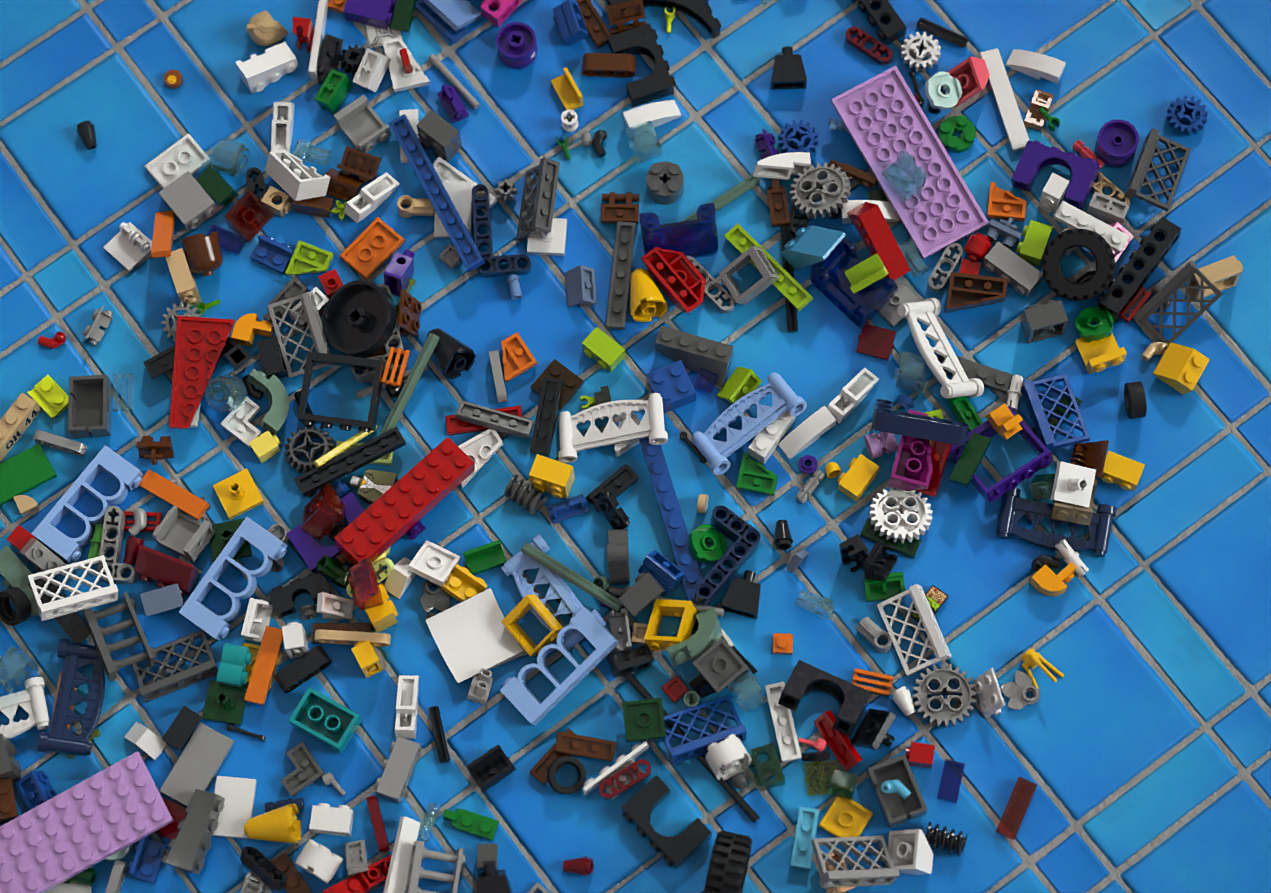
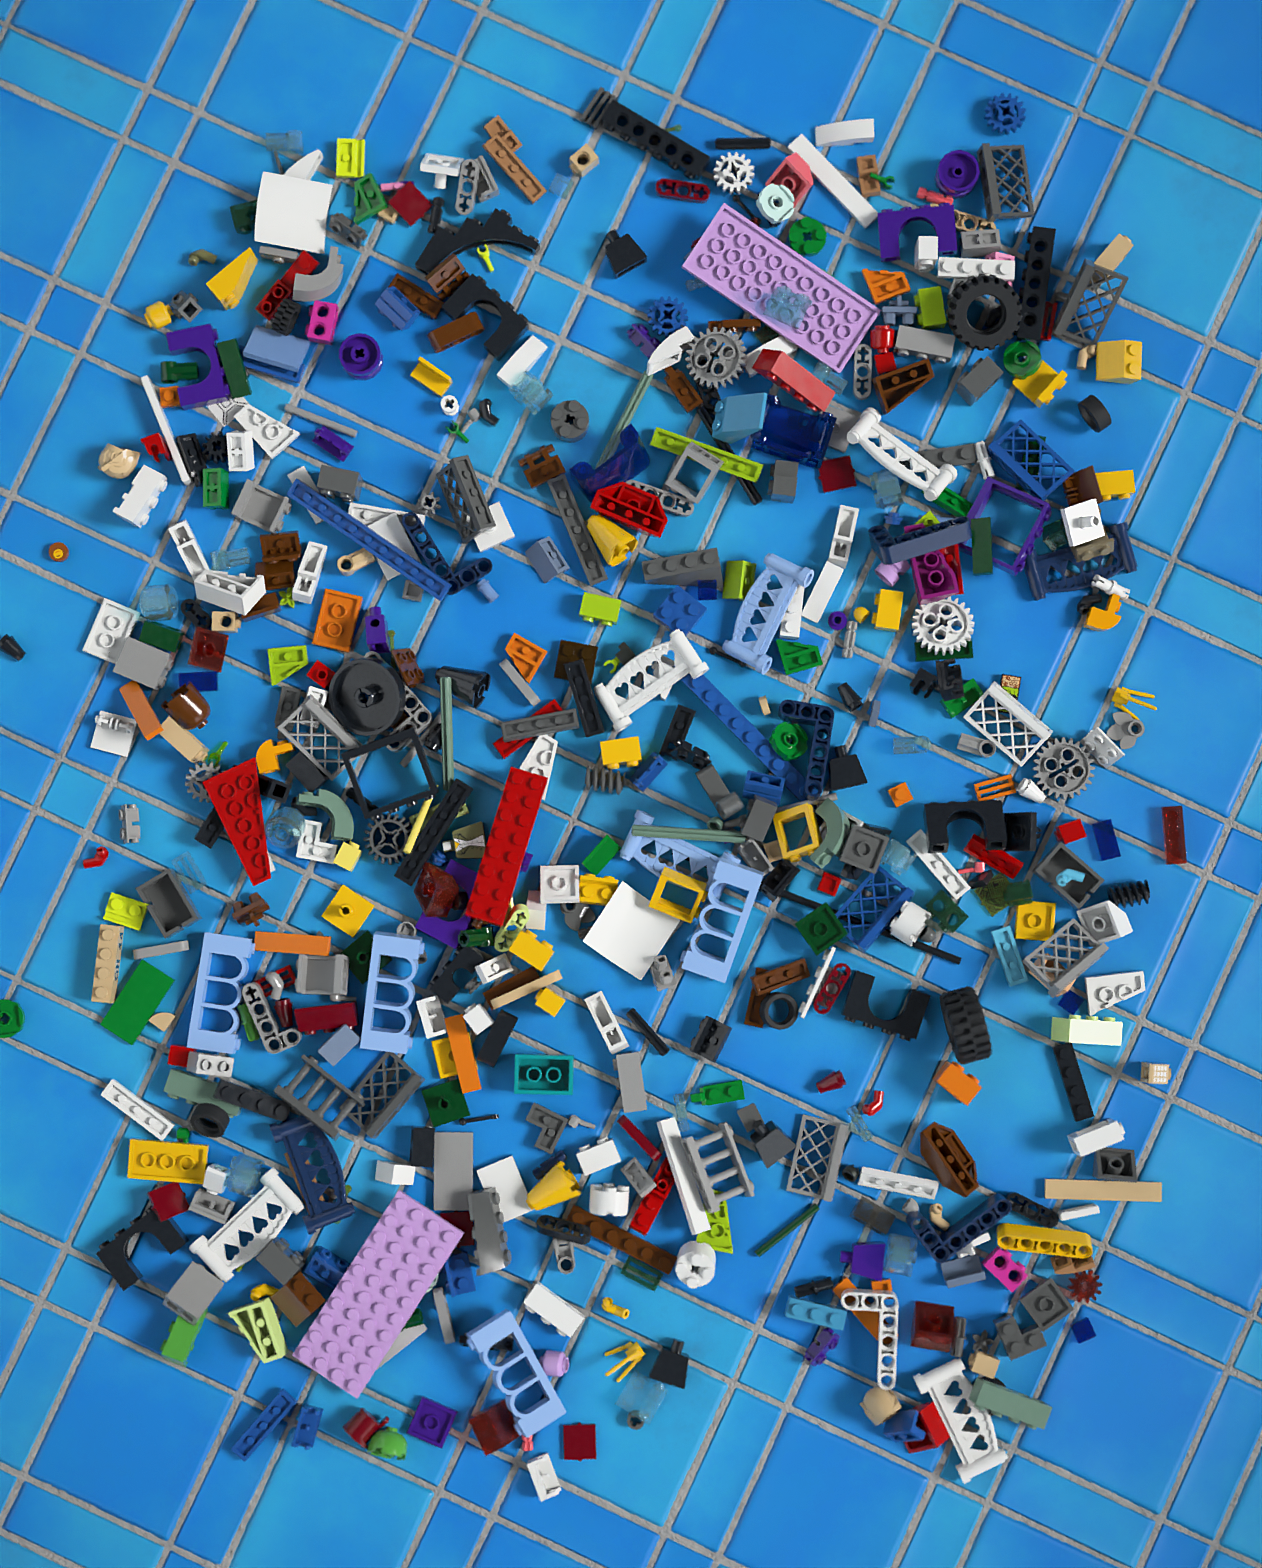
camera: 30 degrees left, 15 degrees up
(75, 602) = (268, 1090): white fence -> none
(233, 665) = (436, 1068): teal brick -> none
(272, 254) = (250, 673): blue bracket -> none
(366, 585) = (517, 943): clear red slope -> none
(399, 352) = (421, 709): orange tile -> none
(405, 60) = (268, 426): red tile -> none
(687, 700) = (852, 883): sand green hinge -> none
(823, 322) = (784, 481): none -> dark grey brick
(866, 273) = (800, 418): lime panel -> none
(1004, 421) = (994, 495): light orange brick -> none

